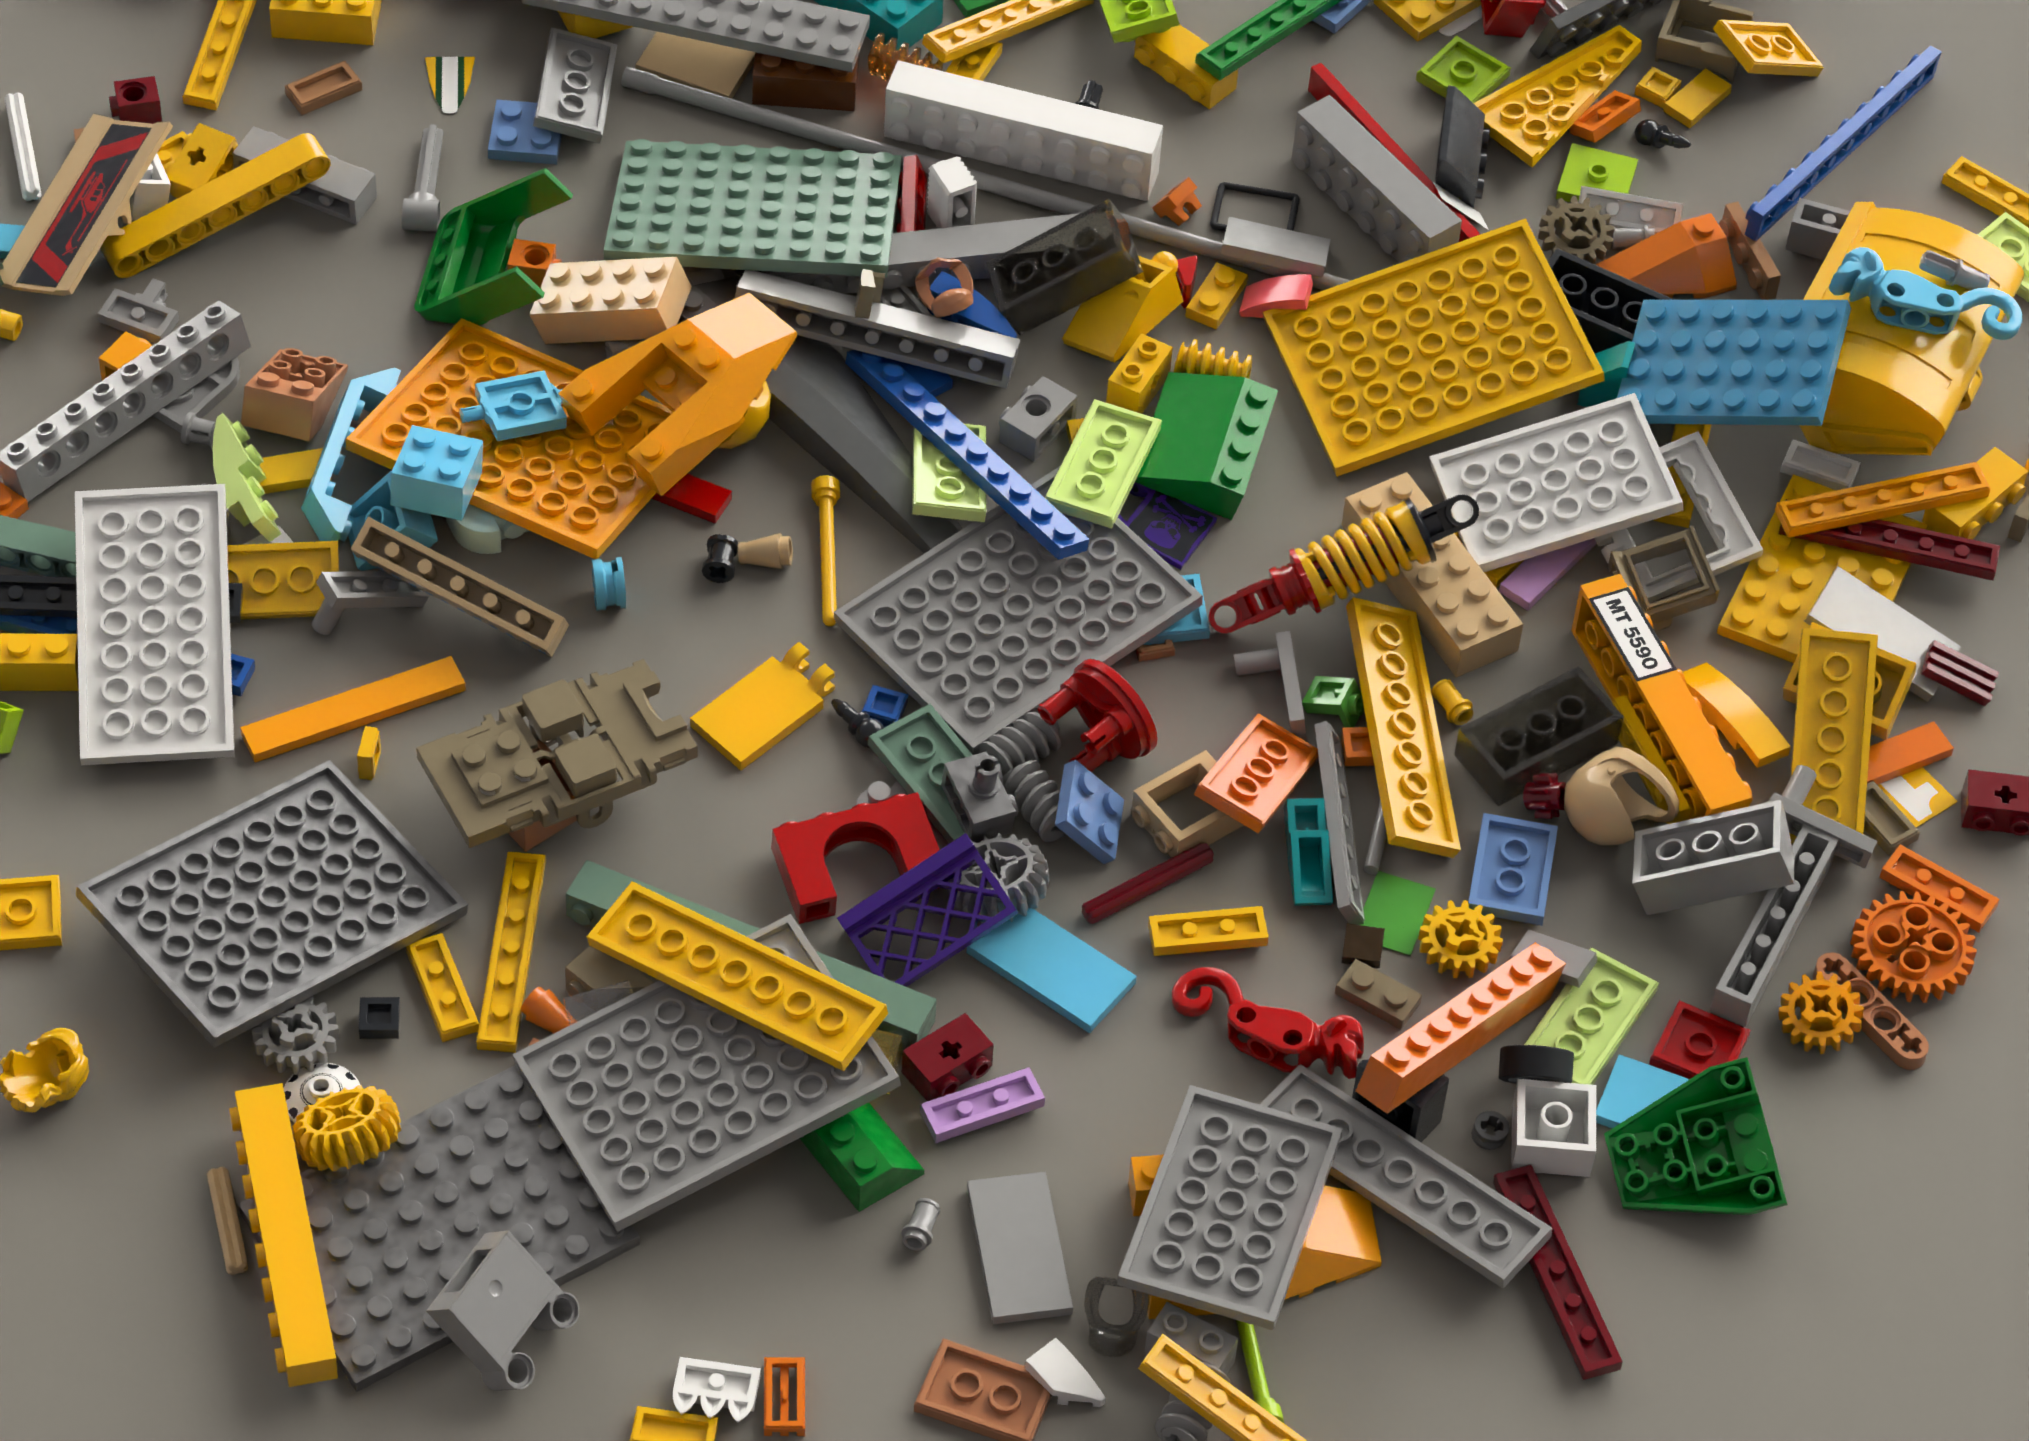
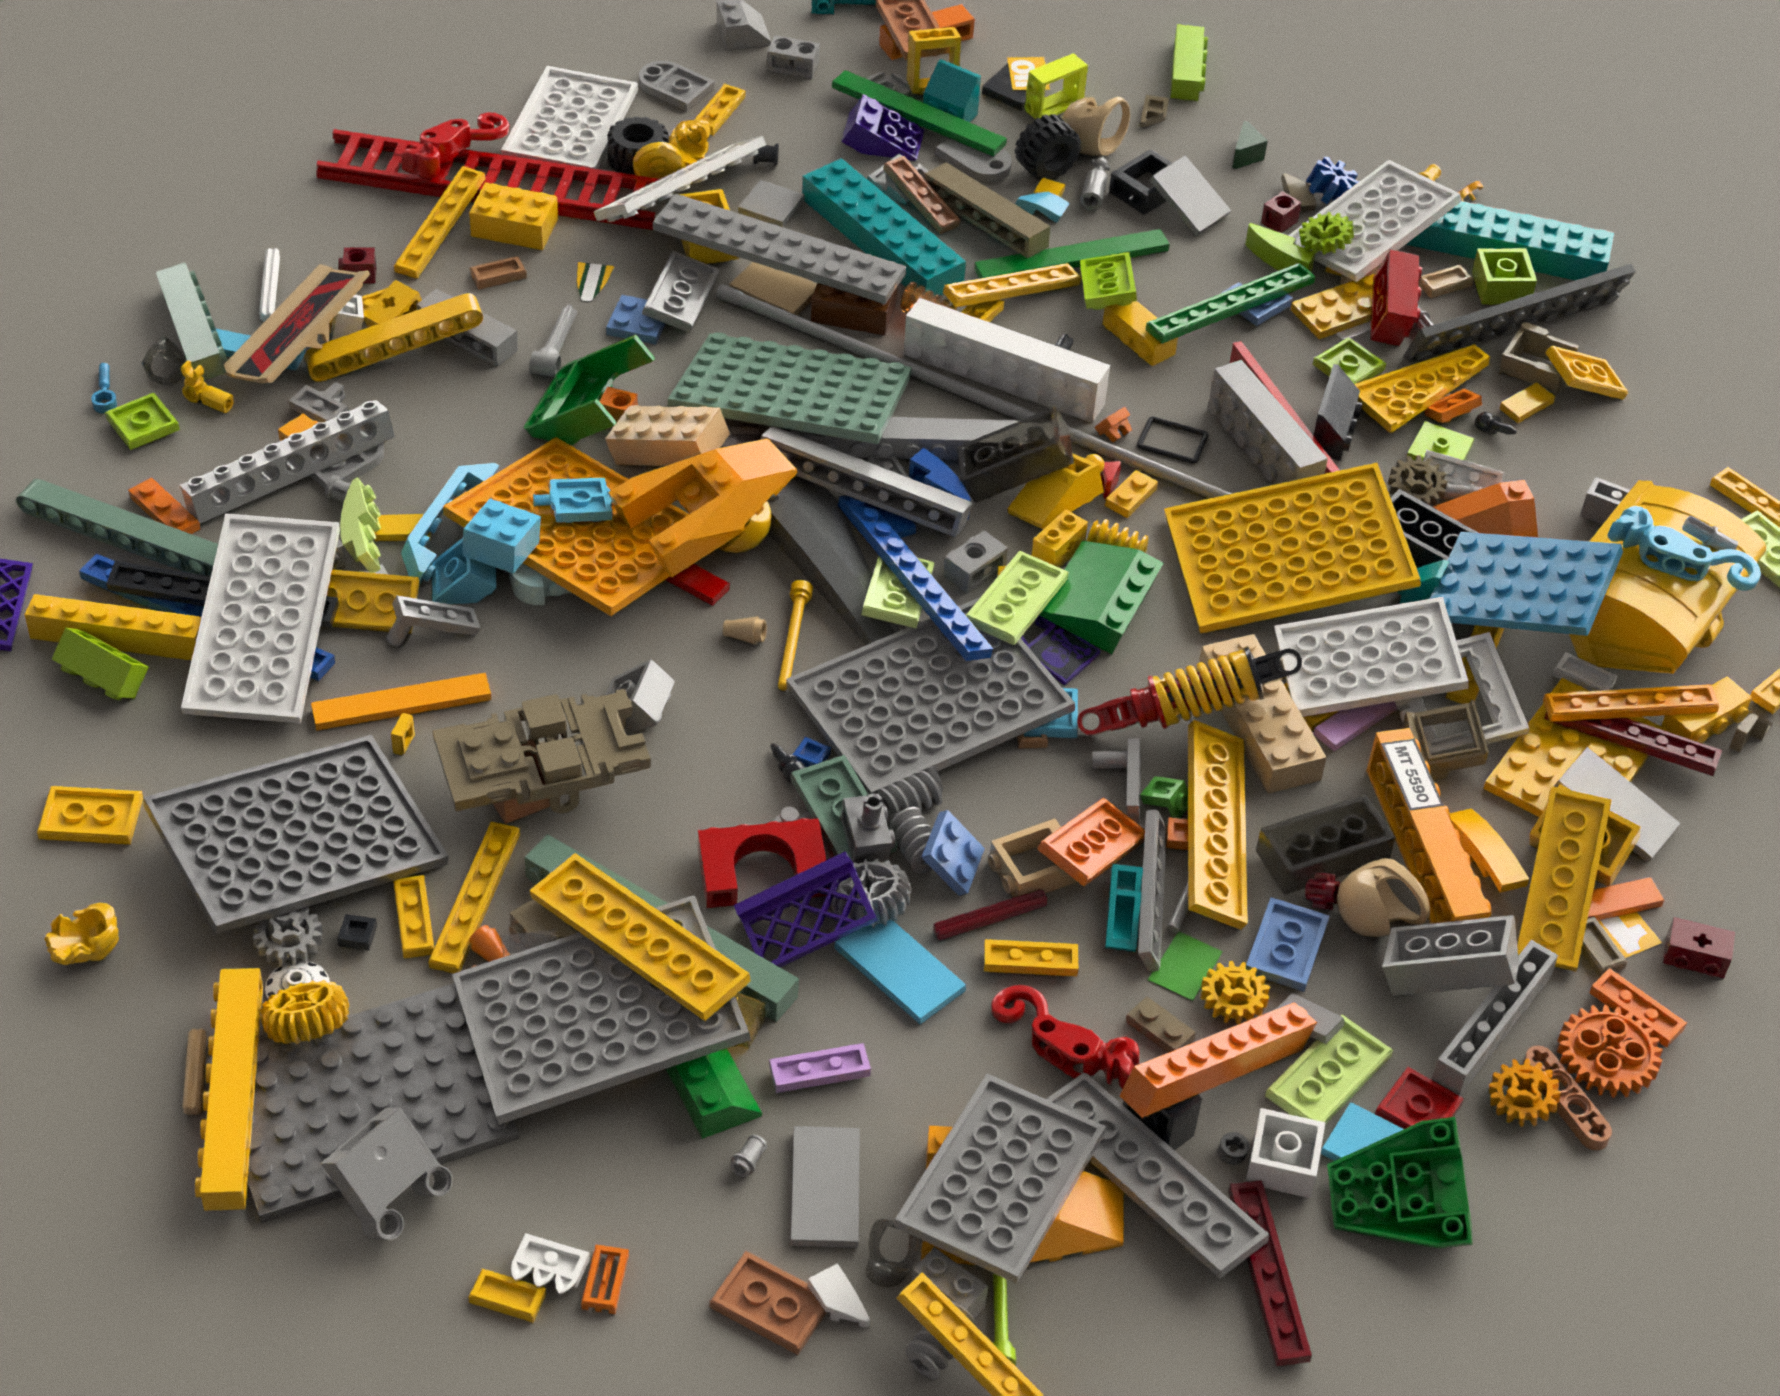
camera: 10 degrees right, 5 degrees down
(292, 394) = (415, 473): nougat slope -> none
(459, 587) = (501, 621): tan brick -> none
(608, 583) = (617, 635): medium azure wheel -> none
(666, 650) = (648, 691): none -> light grey slope
(719, 565) = (707, 633): black bush -> none
(764, 707) = (717, 742): yellow tile -> none
(869, 291) = (861, 451): dark tan slope -> none
(913, 200) = (915, 394): red plate -> none
(947, 1058) = (799, 1026): dark red brick -> none
(950, 300) = (922, 466): nougat piece -> none
(951, 194) = (942, 394): white brick -> none
(1109, 708) = (985, 777): red piece -> none
(1275, 247) = (1182, 464): light grey tile -> none
(1276, 293) = (1178, 495): coral slope -> none
(1363, 944) = (1155, 986): dark brown tile -> none
(1457, 708) = (1262, 812): yellow pin -> none
(1460, 205) = (1330, 452): white sticker -> none
(1535, 1063) = (1278, 1098): black tyre -> none
(1636, 738) = (1405, 856): yellow tile -> none
(1657, 87) = (1497, 391): yellow tile -> none
(1751, 254) = (1550, 509): medium nougat plate -> none
(1841, 144) = (1634, 444): blue plate -> none
(1851, 845) = (1568, 961): light grey piece -> none
(1961, 668) = (1677, 839): dark red tile -> none

